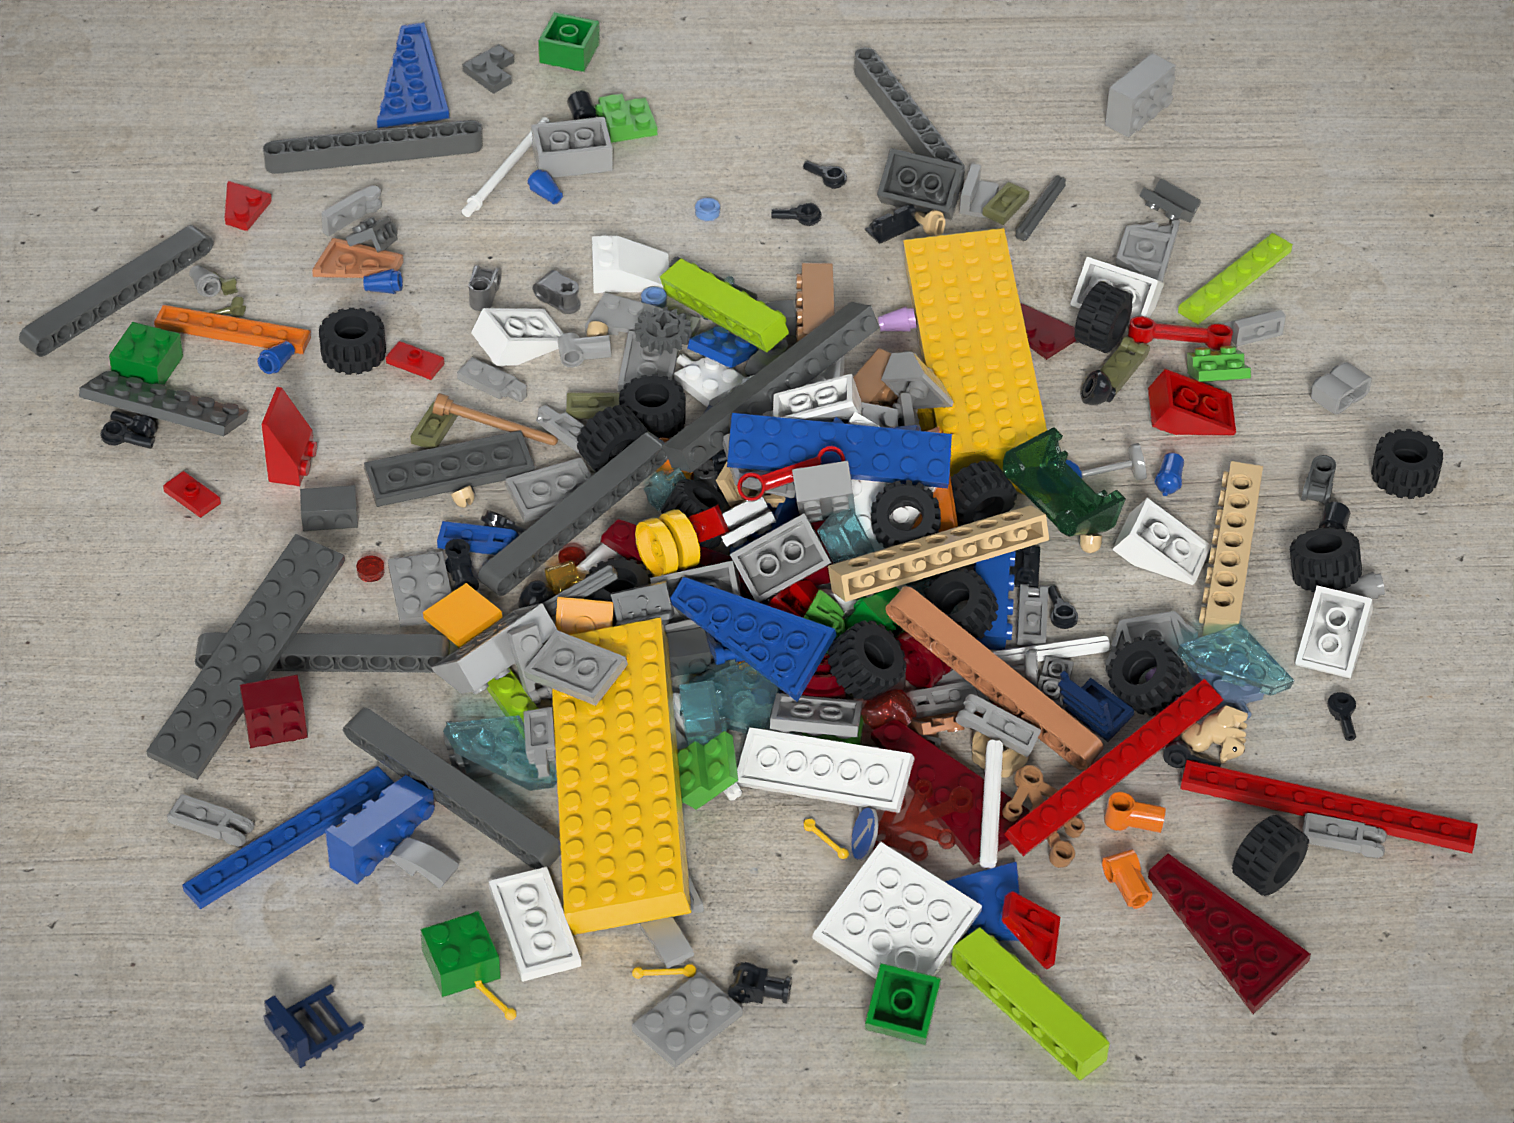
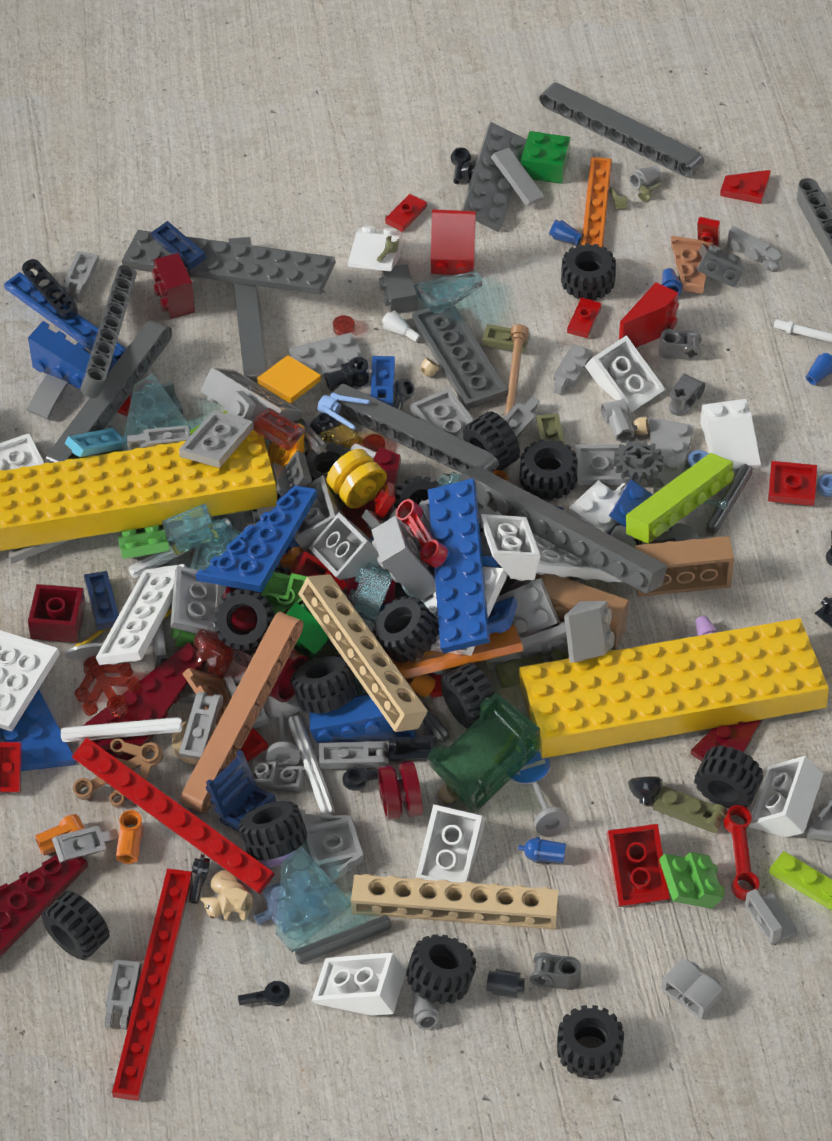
camera: 85 degrees right, 5 degrees up
(175, 381) = (517, 176): none -> light grey tile
(210, 693) = (176, 242): none -> dark blue plate
(233, 841) = (47, 290): none -> black beam
(271, 512) = (370, 244): none -> white slope
(287, 486) = (390, 247): none -> olive hand
(325, 233) = (708, 230): none -> red plate
(347, 773) = (108, 331): none -> dark grey beam
(353, 459) = (447, 291): none -> clear light blue plate
(384, 518) = (395, 323): none -> white cone
(444, 296) = (650, 315): none -> red slope
(519, 579) = (331, 406): none -> light blue plant
(535, 804) = (94, 442): none -> medium azure plate
(568, 611) = (278, 428): none -> clear red slope
(703, 231) = (792, 483): none -> red plate
(780, 821) = (101, 599): none -> dark blue plate
(800, 861) = (56, 613): none -> dark red brick
(1098, 568) = (398, 791): none -> dark red wheel
(1150, 848) = (83, 842): none -> light grey hinge
(1271, 641) = (343, 939): none -> dark grey axle

